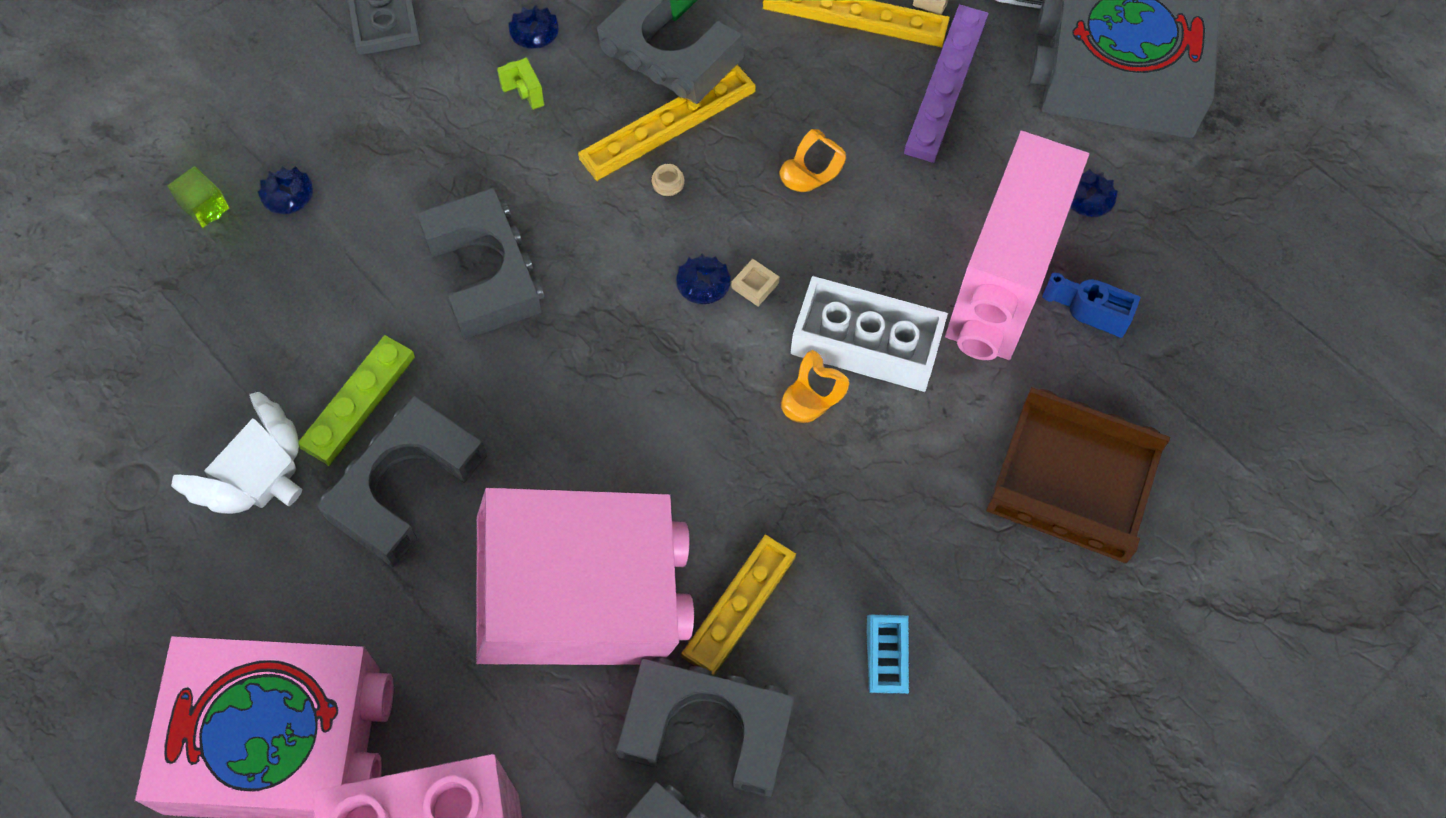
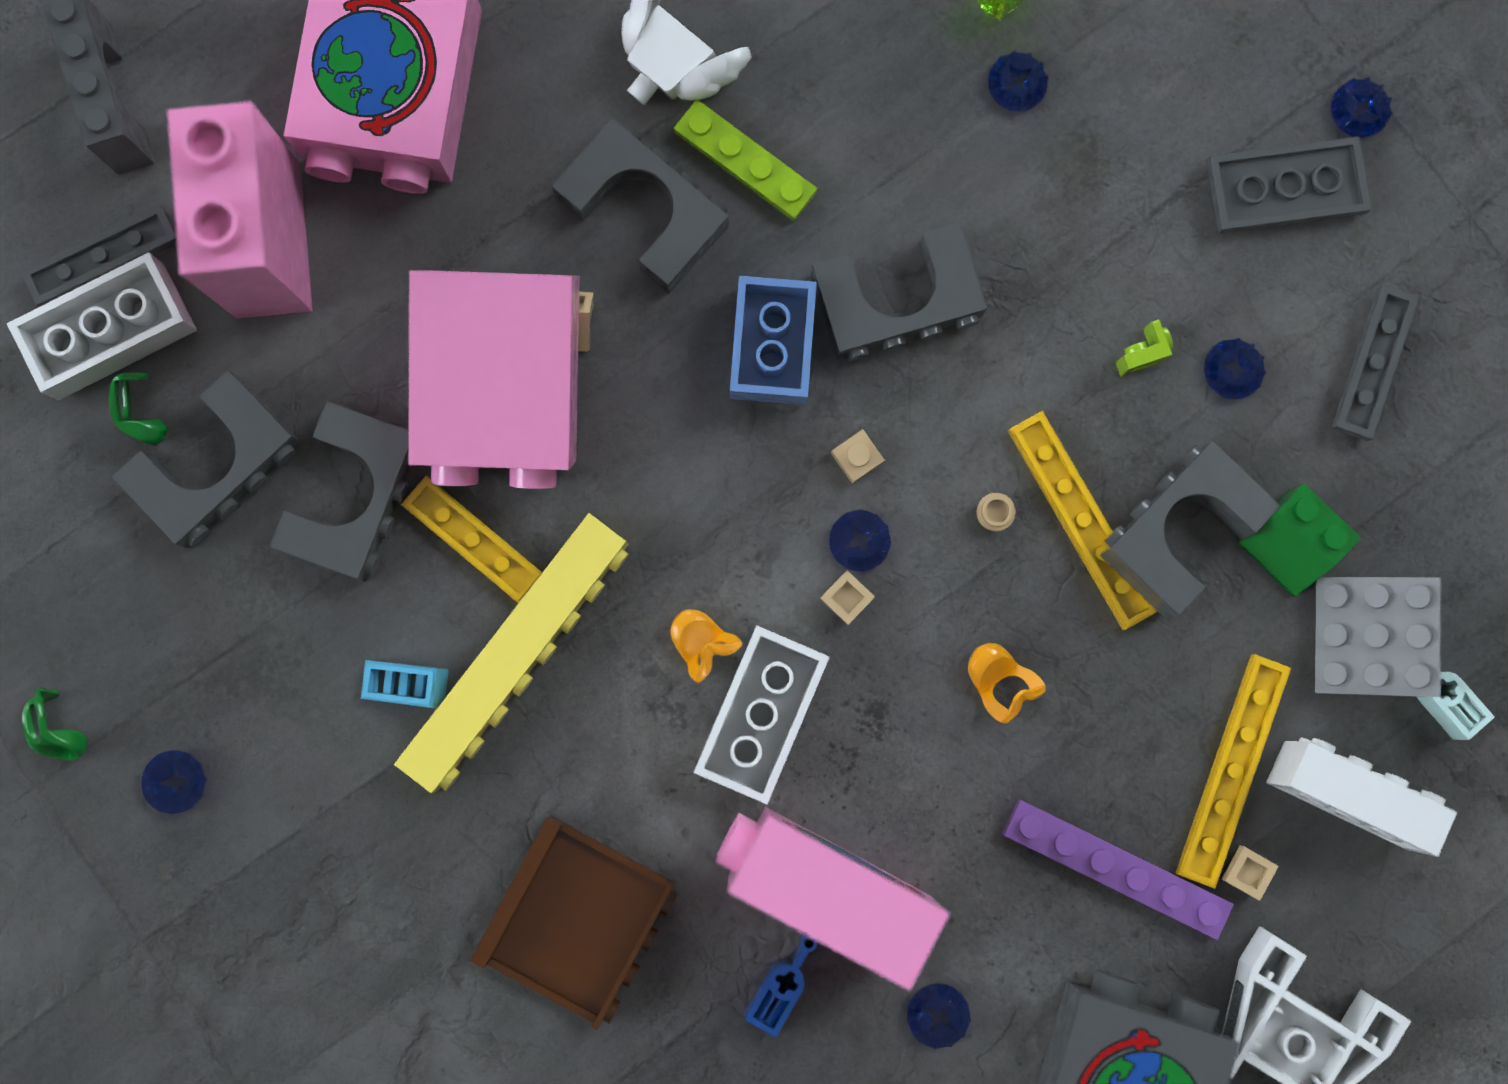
camera: 90 degrees right, 20 degrees up
(529, 352) = (773, 340): none -> medium blue brick
(629, 287) = (857, 456): none -> tan plate
(847, 552) = (512, 654): none -> light yellow brick

